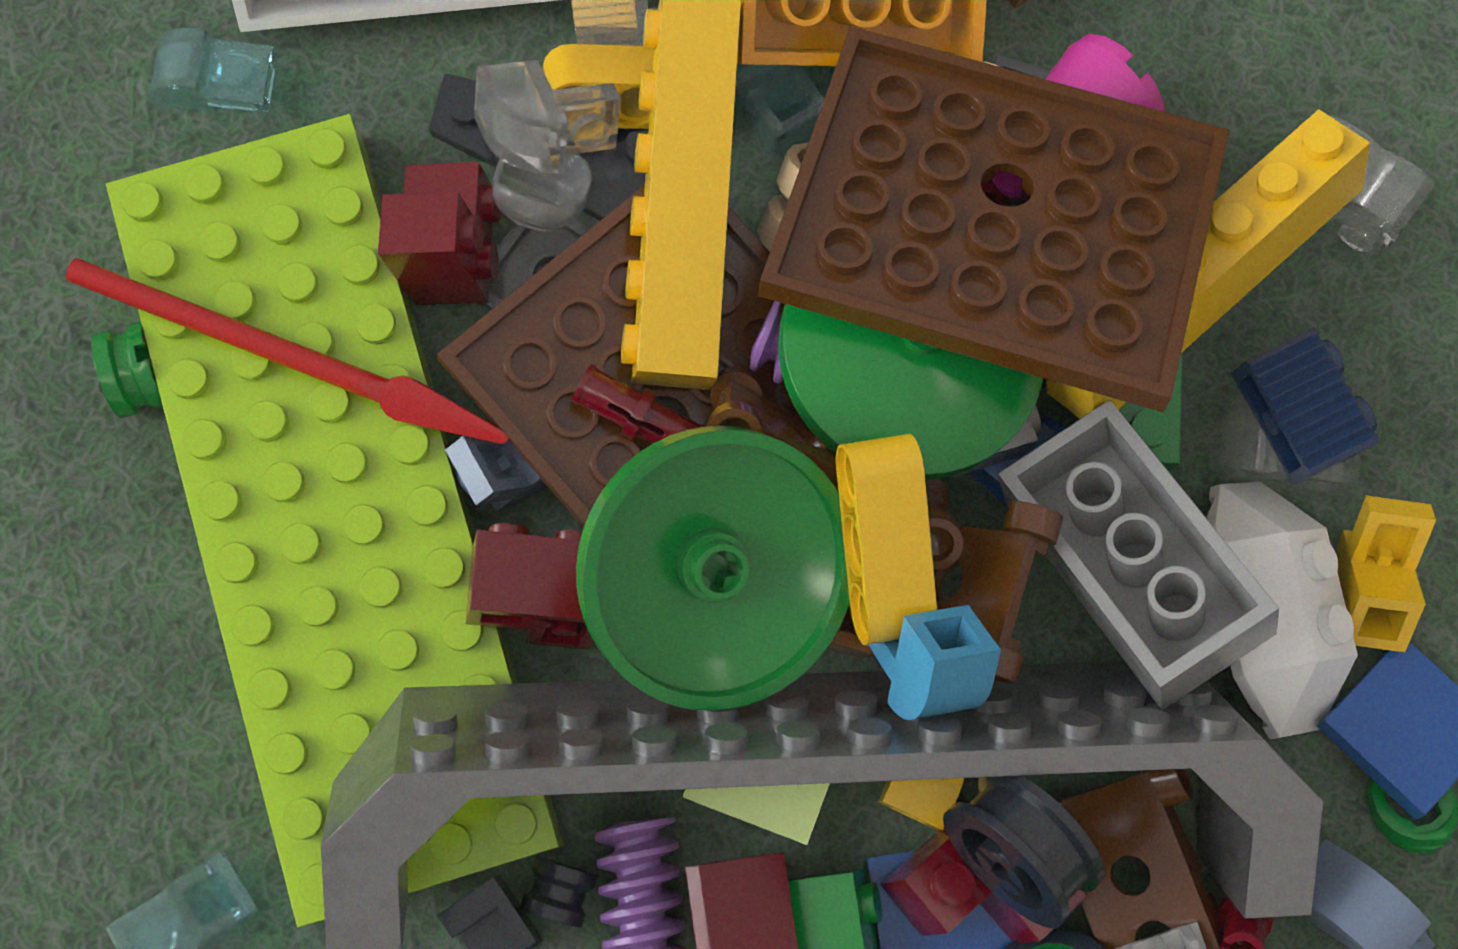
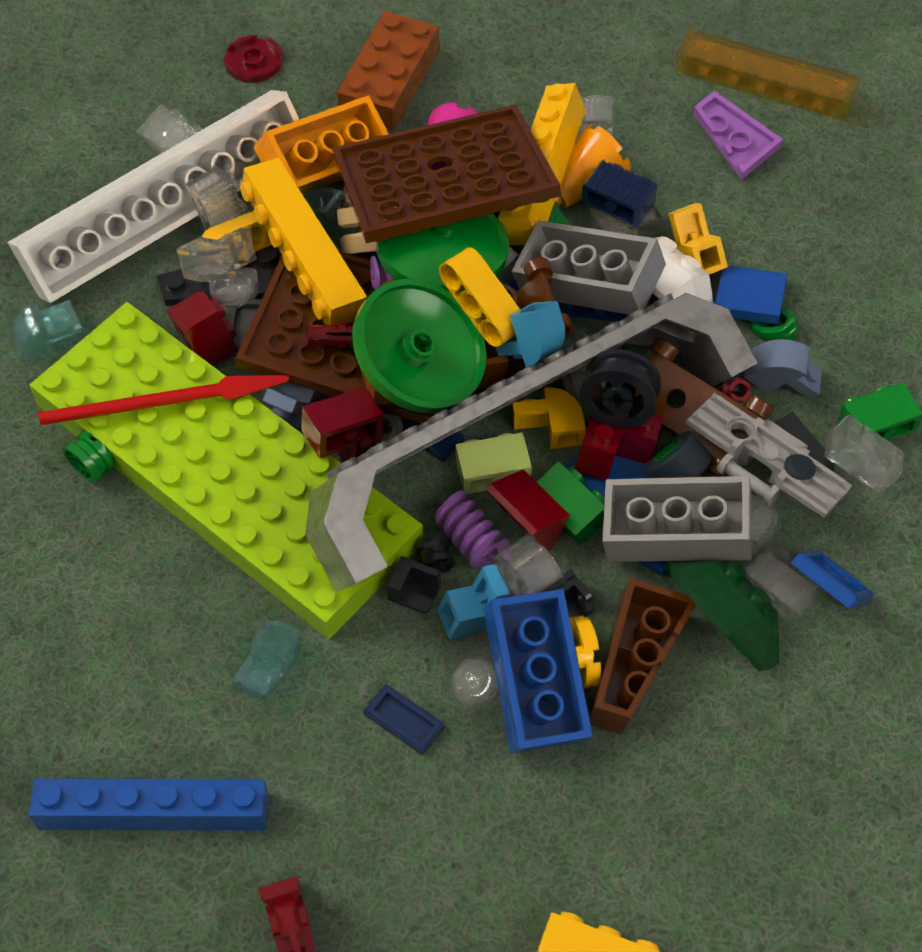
camera: 30 degrees left, 20 degrees down
(1309, 289) = (587, 153): none -> light orange cone

